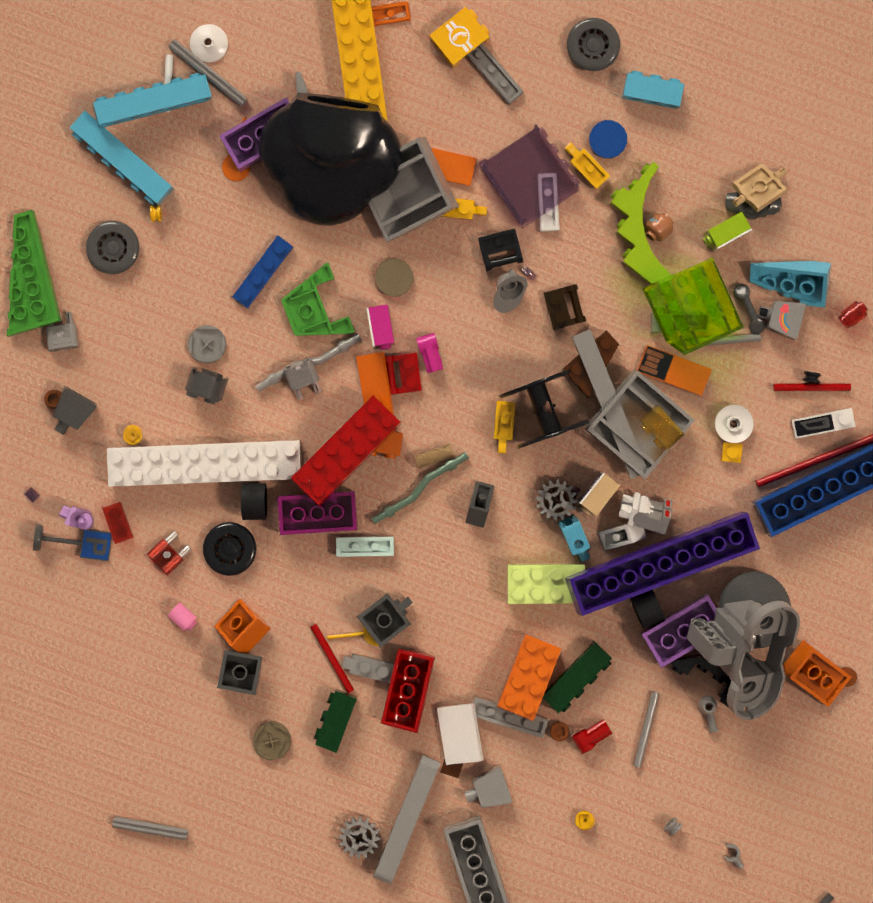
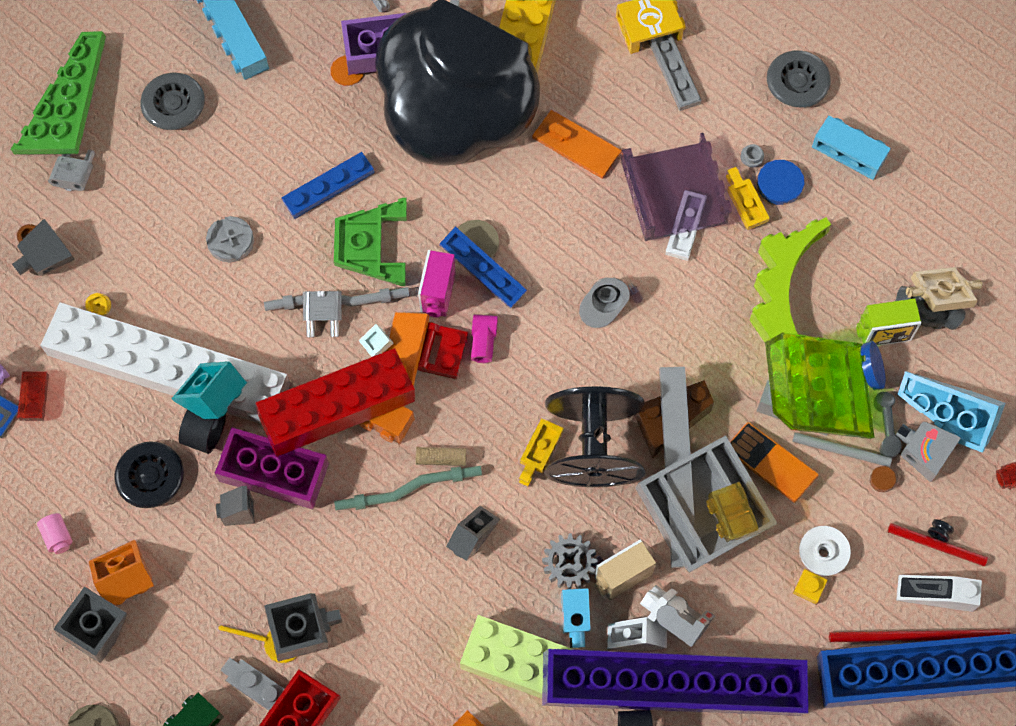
camera: 25 degrees right, 20 degrees down
(155, 213) = (236, 83): yellow bush -> none
(165, 556) = (70, 455): clear red piece -> none
(206, 385) = (206, 277): dark grey brick -> none
(251, 478) = (210, 389): none -> teal slope
(303, 551) = (236, 507): none -> dark grey slope
(332, 659) = (213, 655): red bar -> none
(352, 386) = (376, 341): none -> light aqua plate
(364, 546) = (312, 532): light aqua plate -> none
(409, 298) = (483, 267): none -> blue plate
(416, 195) = (538, 160): light grey slope -> none
(466, 210) = (579, 195): yellow plate -> none
(499, 243) = (611, 247): black plate -> none
(558, 308) = (655, 340): dark brown plate -> none
(579, 125) = (752, 155): none -> light grey plate
(659, 227) = (808, 293): nougat head -> none
(728, 273) = (873, 366): none -> blue tile
(758, 352) = (882, 479): none -> dark orange tile

